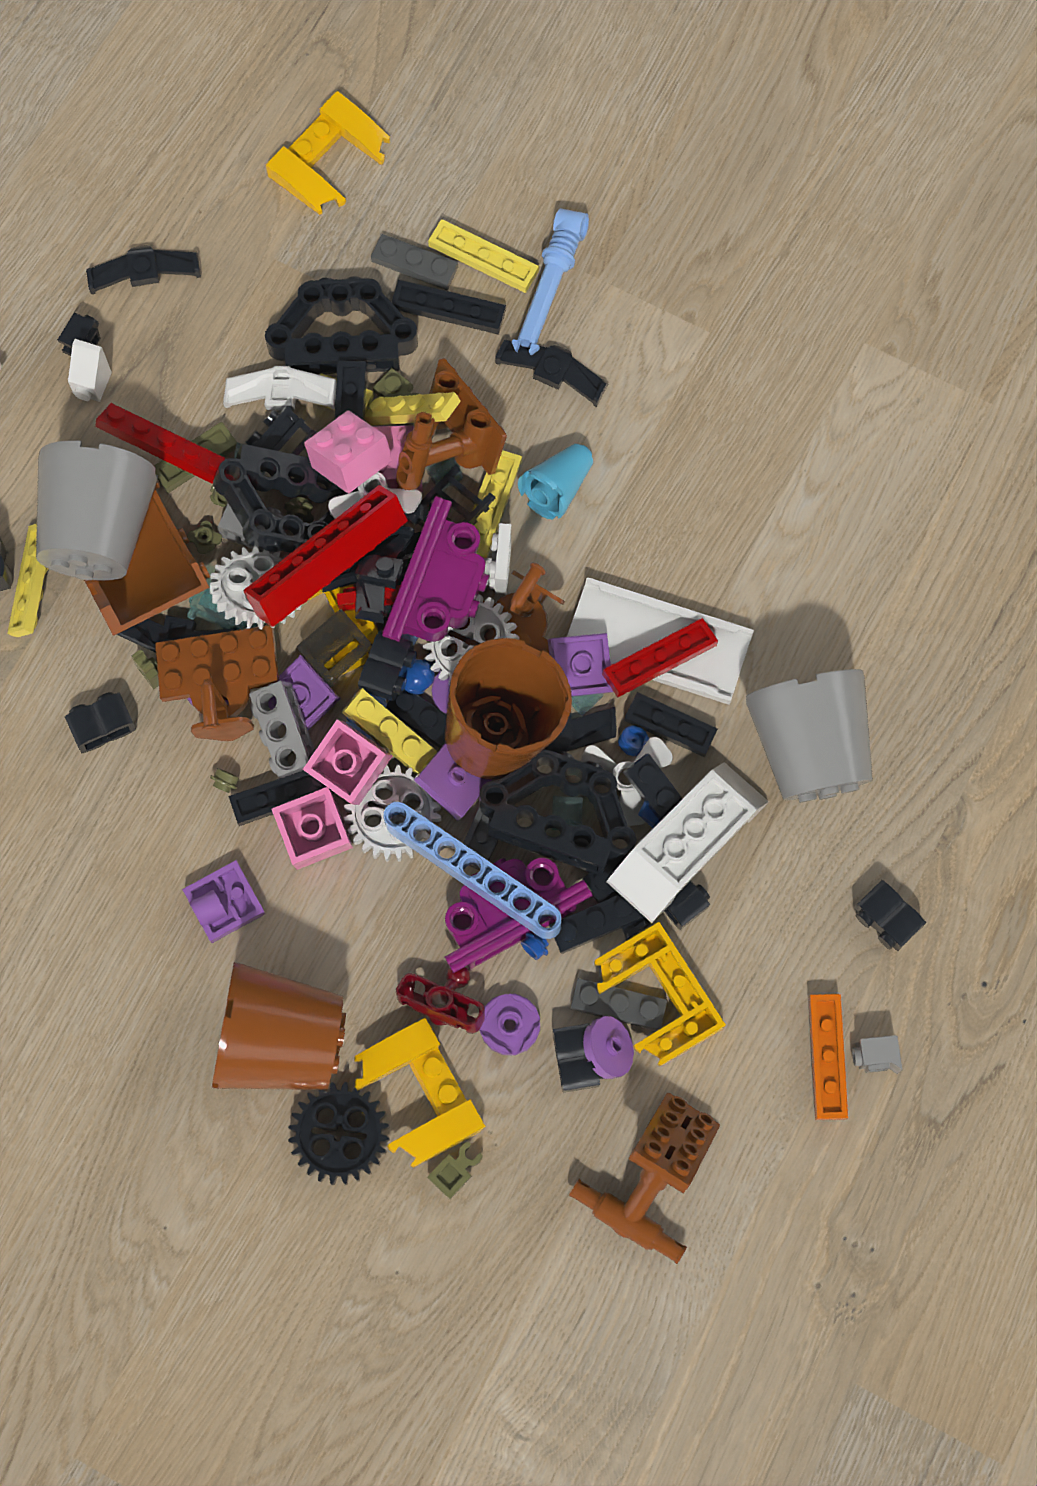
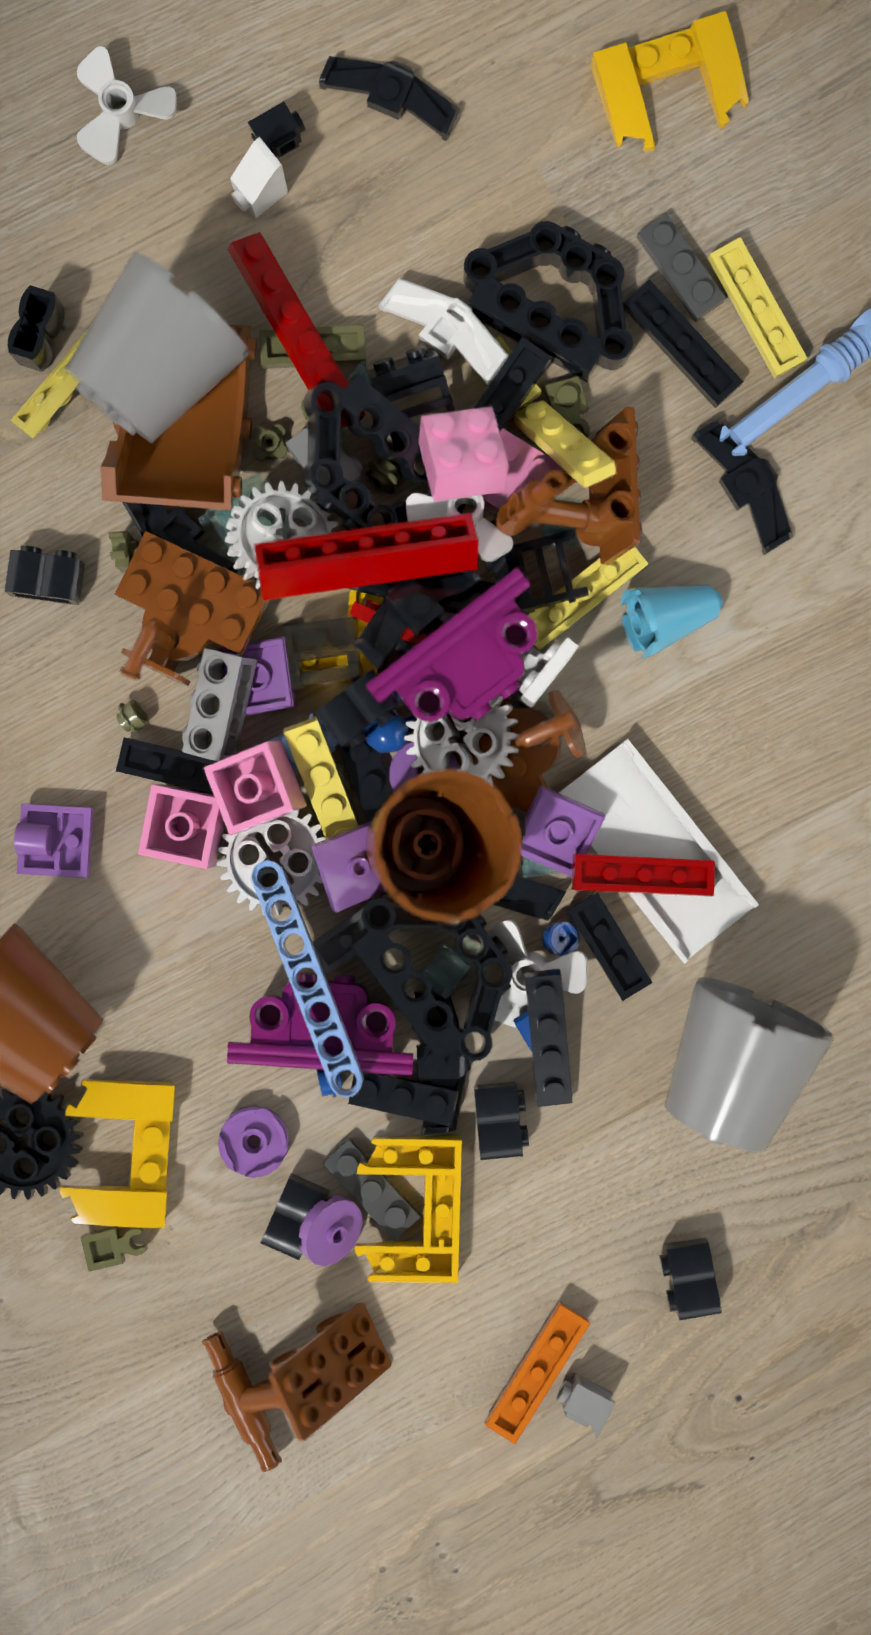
camera: 35 degrees right, 15 degrees up
(456, 1004) = (207, 1100): dark red piece -> none
(686, 840) = (544, 1083): white slope -> none

